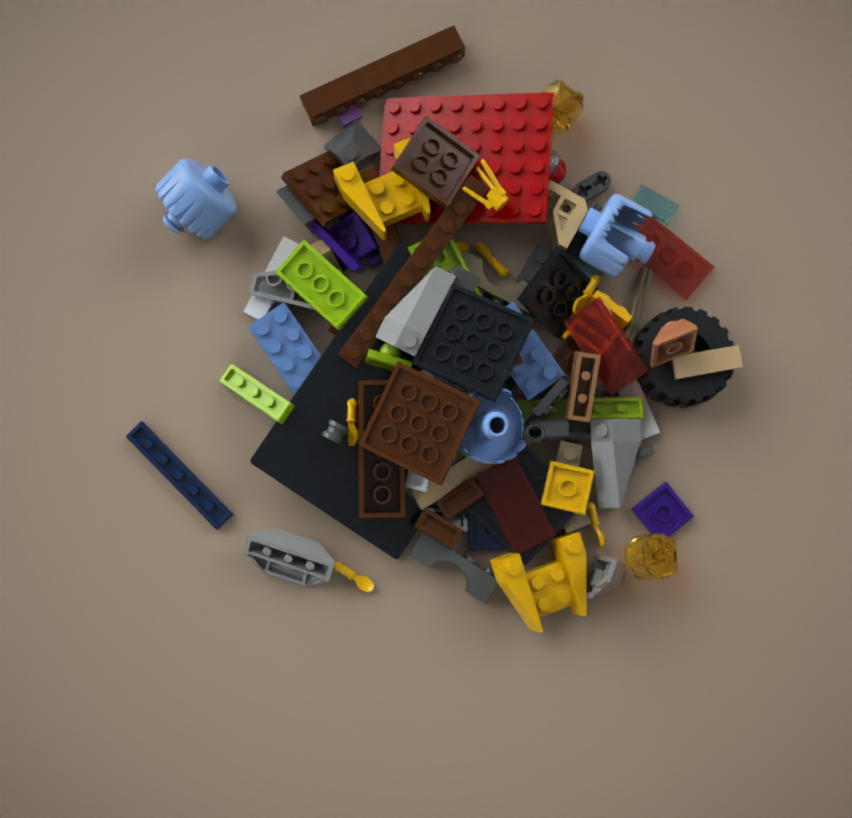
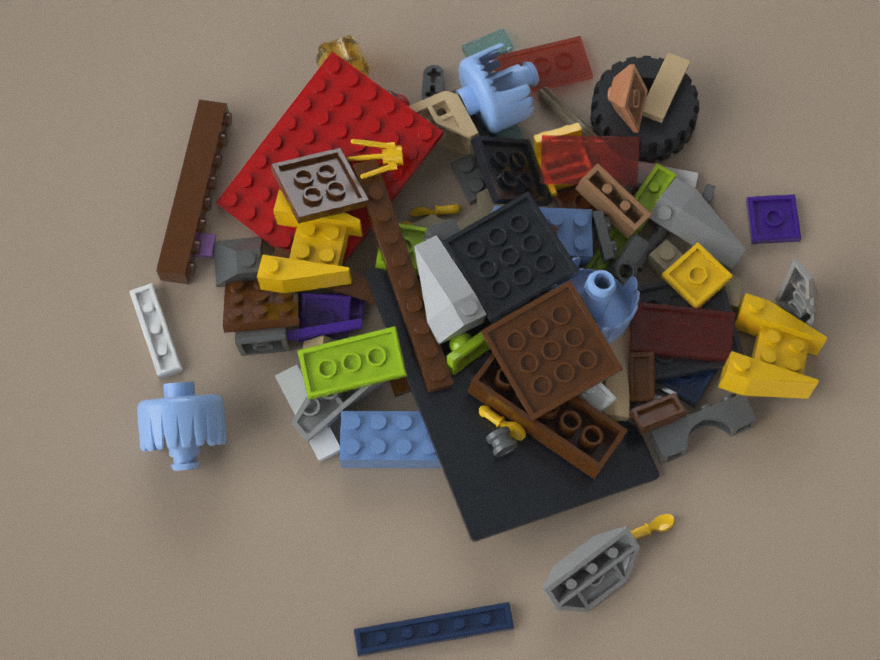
camera: 50 degrees left, 15 degrees down
(257, 393) = (409, 495): lime tile -> none
(260, 129) = (156, 331): none -> white tile
(588, 292) = (528, 147): yellow piece -> none
(592, 513) = (757, 283): yellow piece -> none
(651, 556) = (810, 245): clear yellow brick -> none

